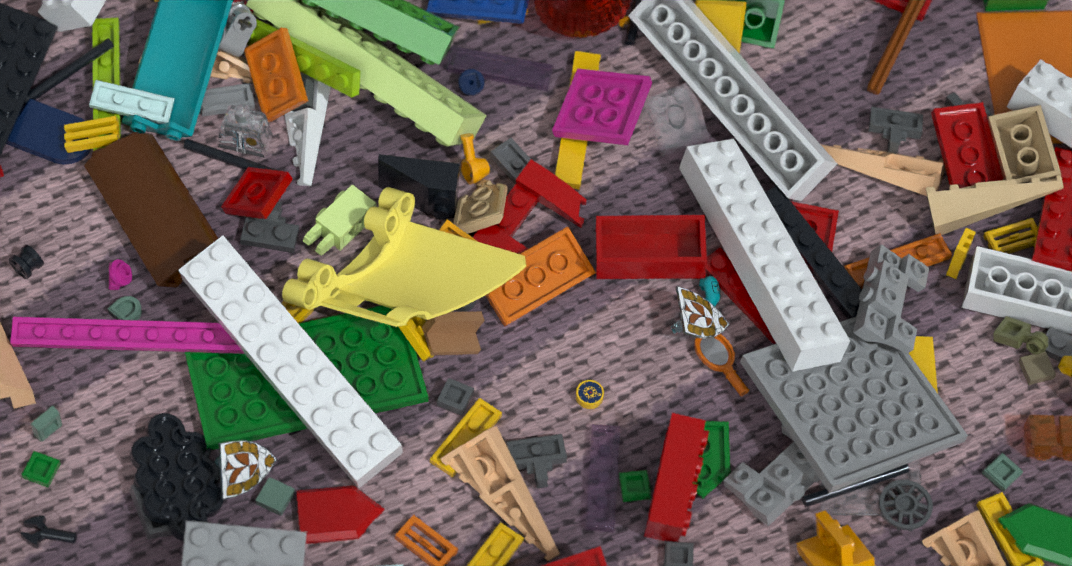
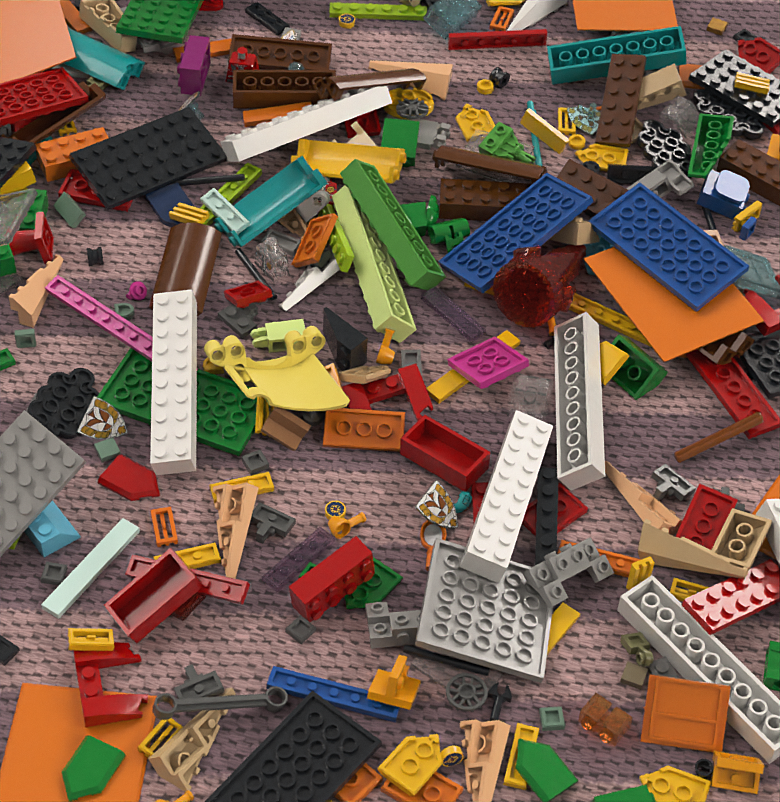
camera: 40 degrees right, 10 degrees down
(471, 82) = (428, 311): dark blue tile -> none
(613, 408) = (337, 524): none -> light orange bar
(938, 492) = (498, 700): none -> black bar

